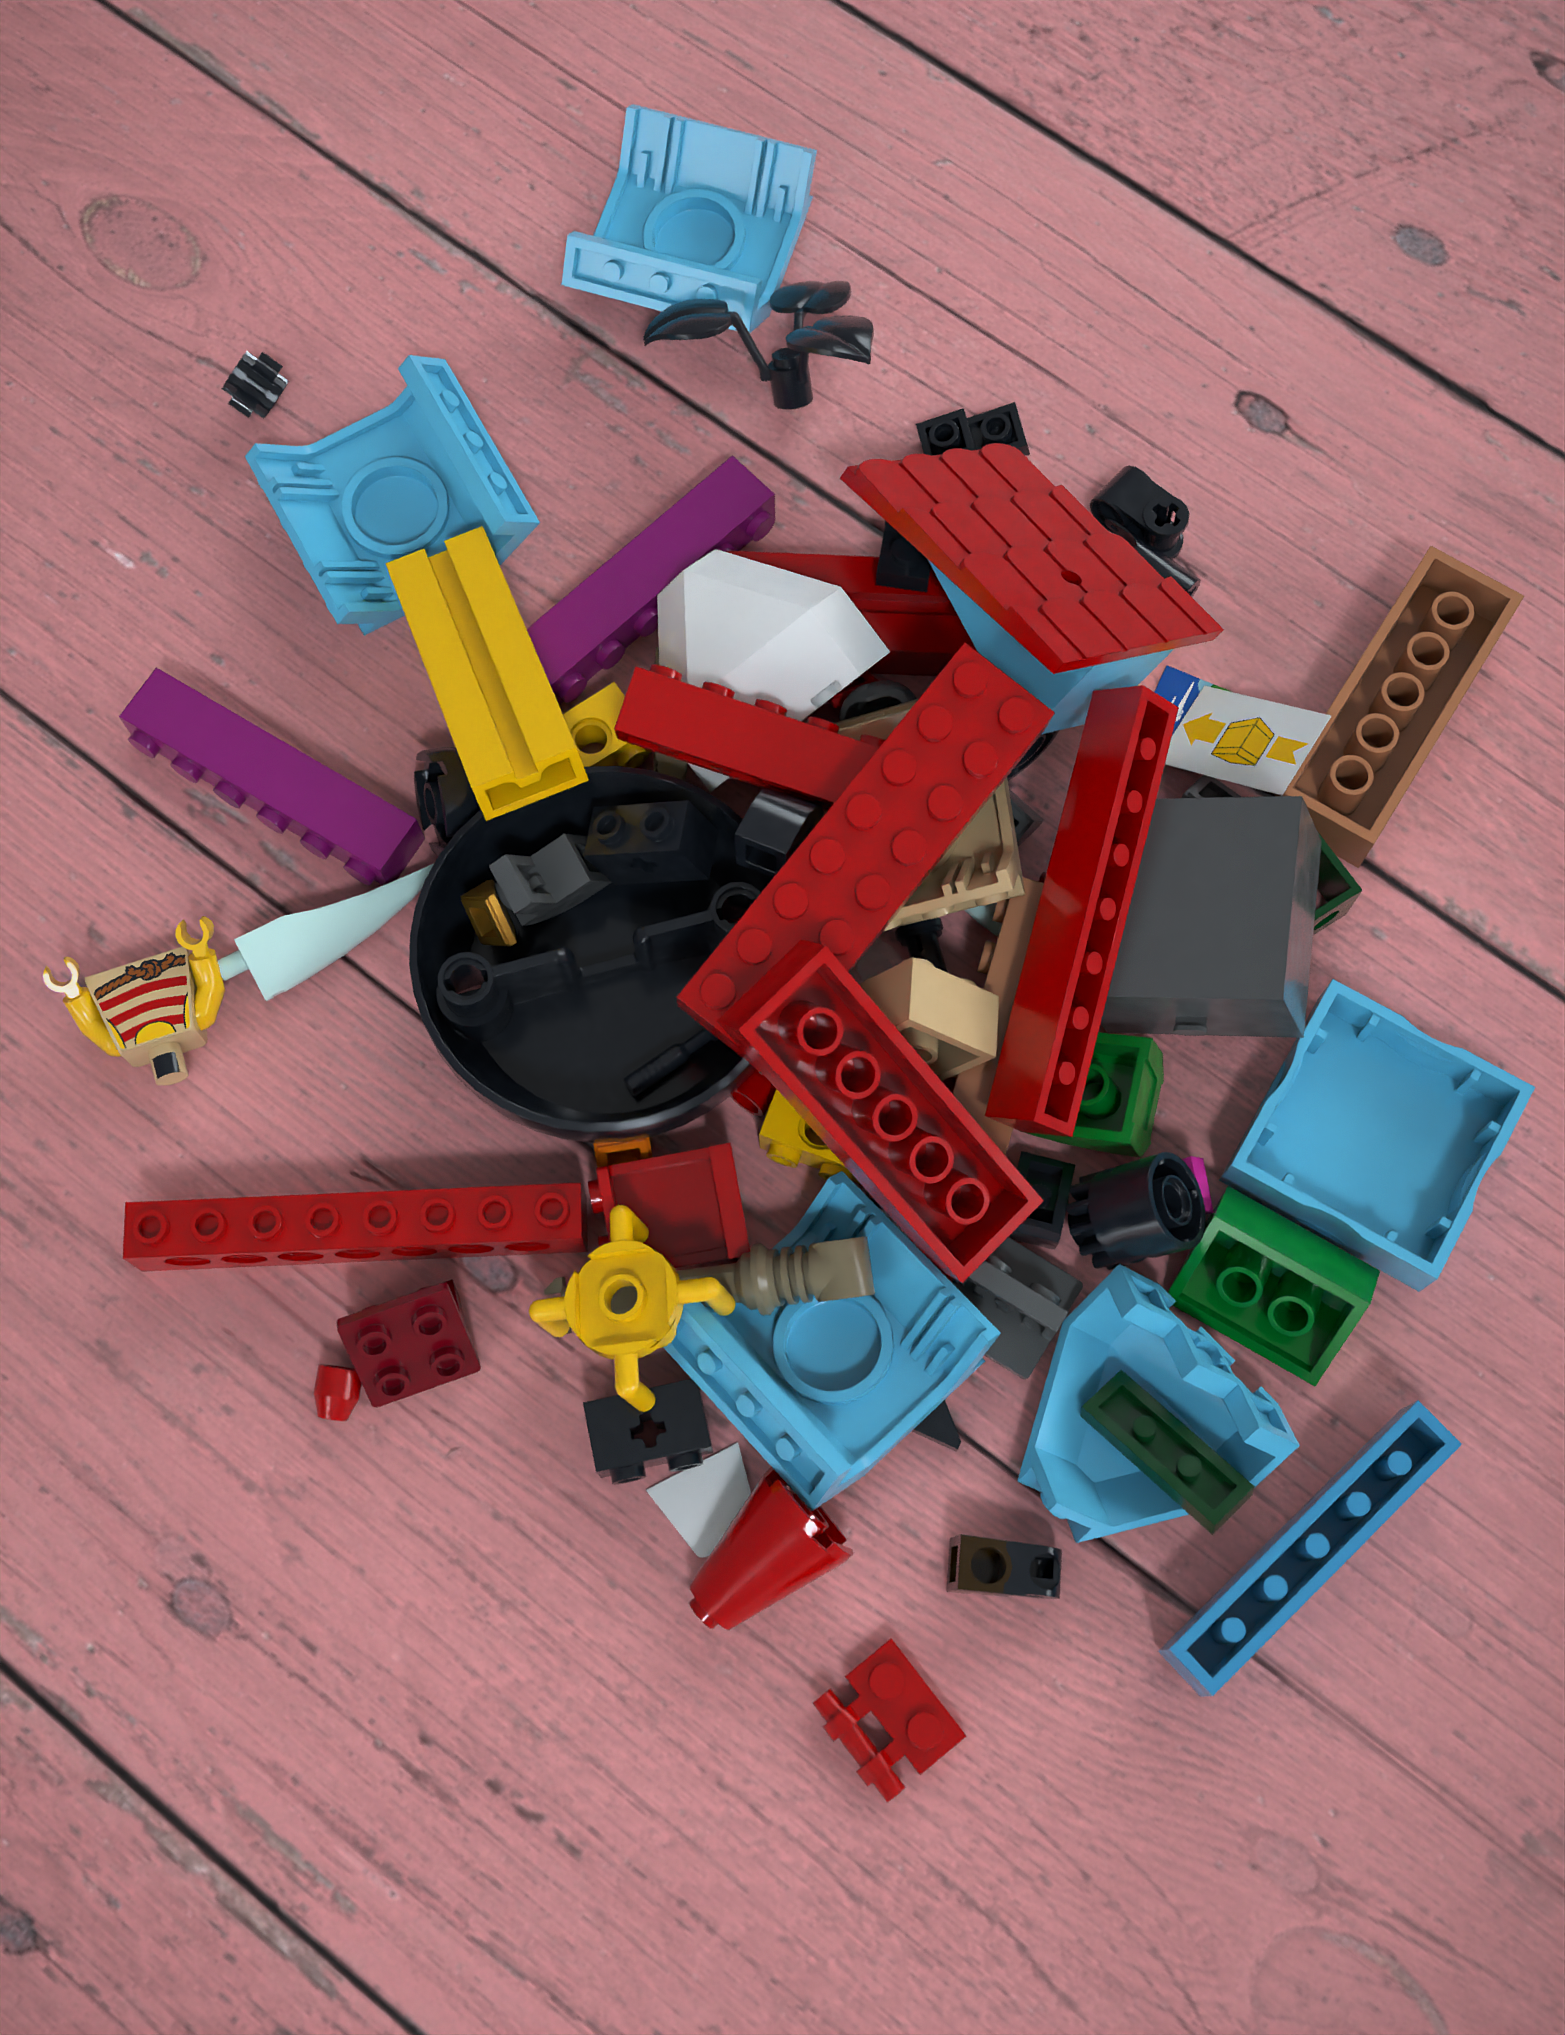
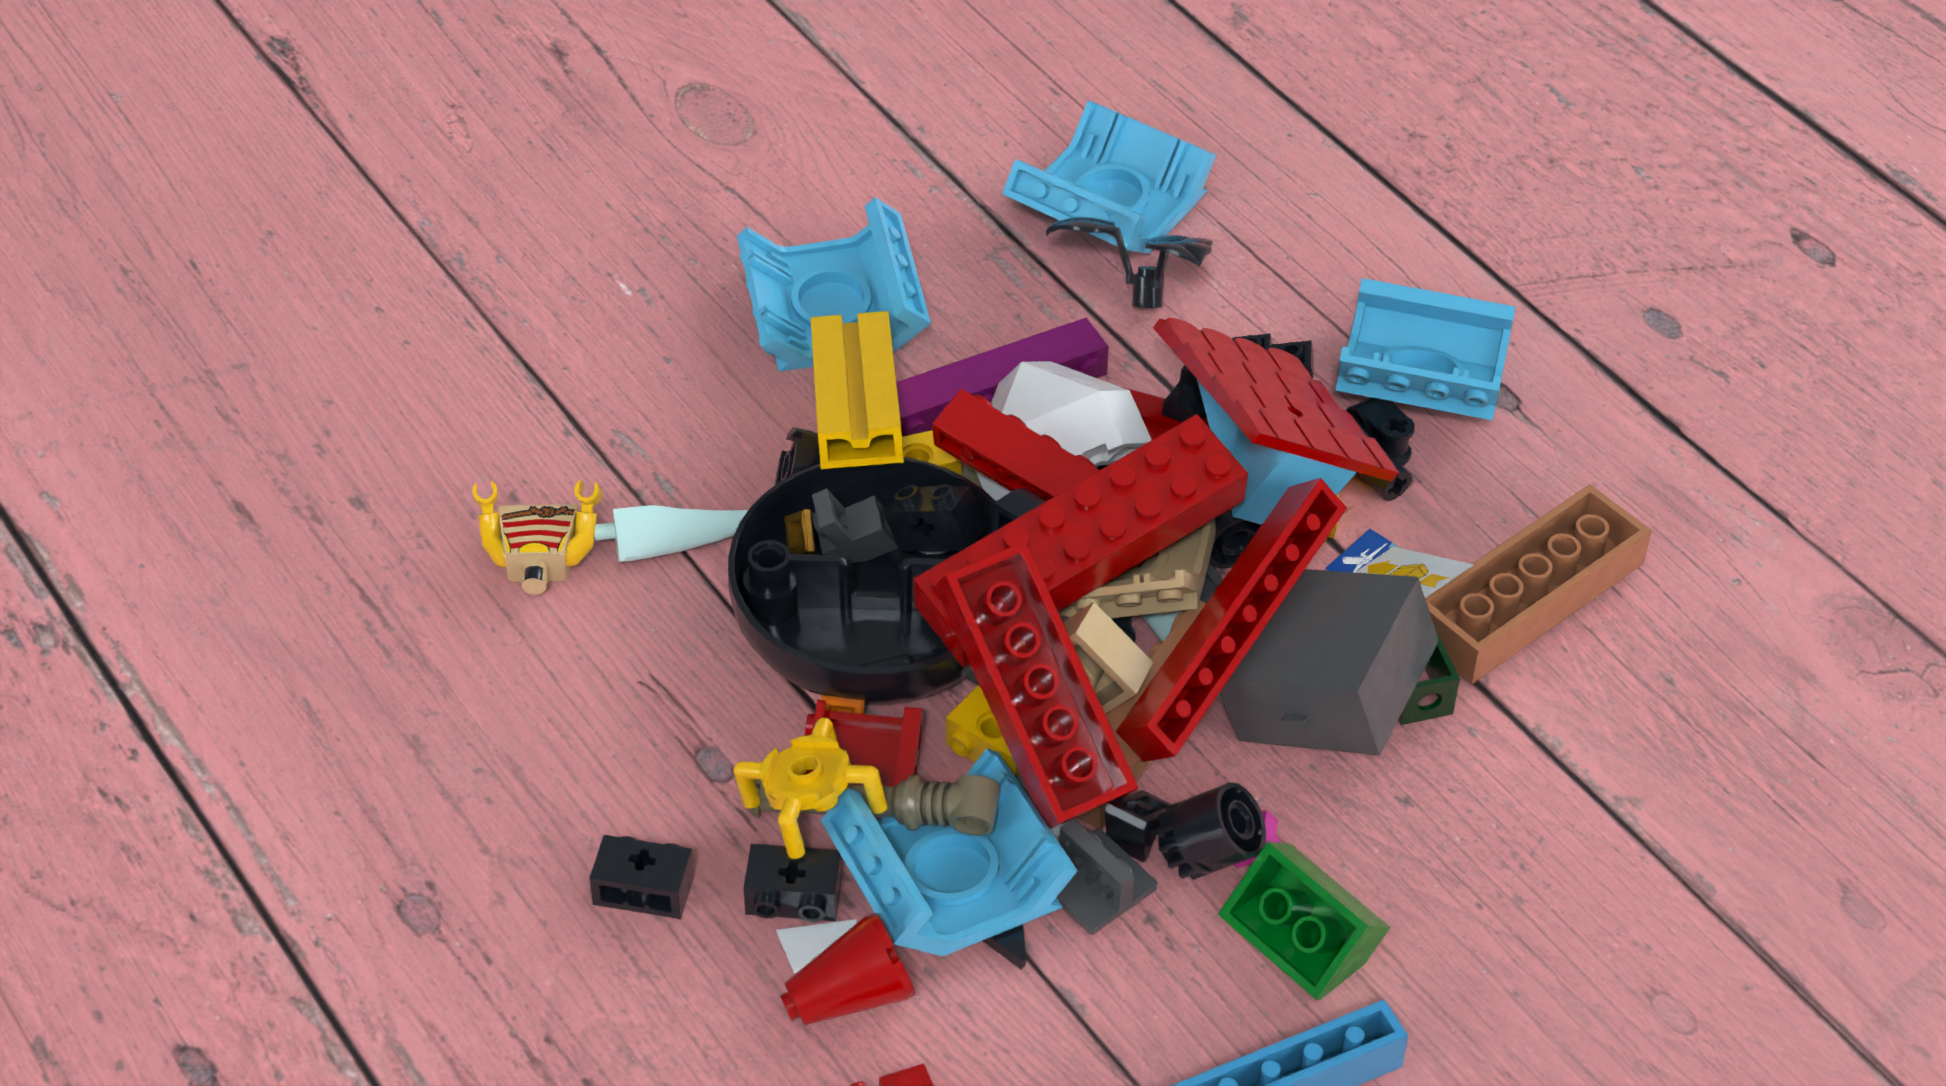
camera: 15 degrees right, 25 degrees down
(255, 384) = (760, 204): black gear -> none
(272, 779) = (677, 430): magenta brick -> none
(336, 1391) = (574, 802): red hose -> none
(356, 1227) = (625, 703): red brick -> none
(409, 1343) = (638, 779): dark red bracket -> none
(431, 1496) = (642, 876): none -> black brick
(755, 1094) = (953, 695): red hose -> none
(1003, 1568) = (1027, 1040): leg -> none
(1118, 1097) = (1216, 755): green slope -> none
(1132, 1330) = (1172, 968): medium azure panel -> none
(1164, 388) = (1426, 349): none -> medium azure panel
(1167, 1451) = (1179, 992): dark green plate -> none
(1377, 1136) = (1422, 844): medium azure tile -> none

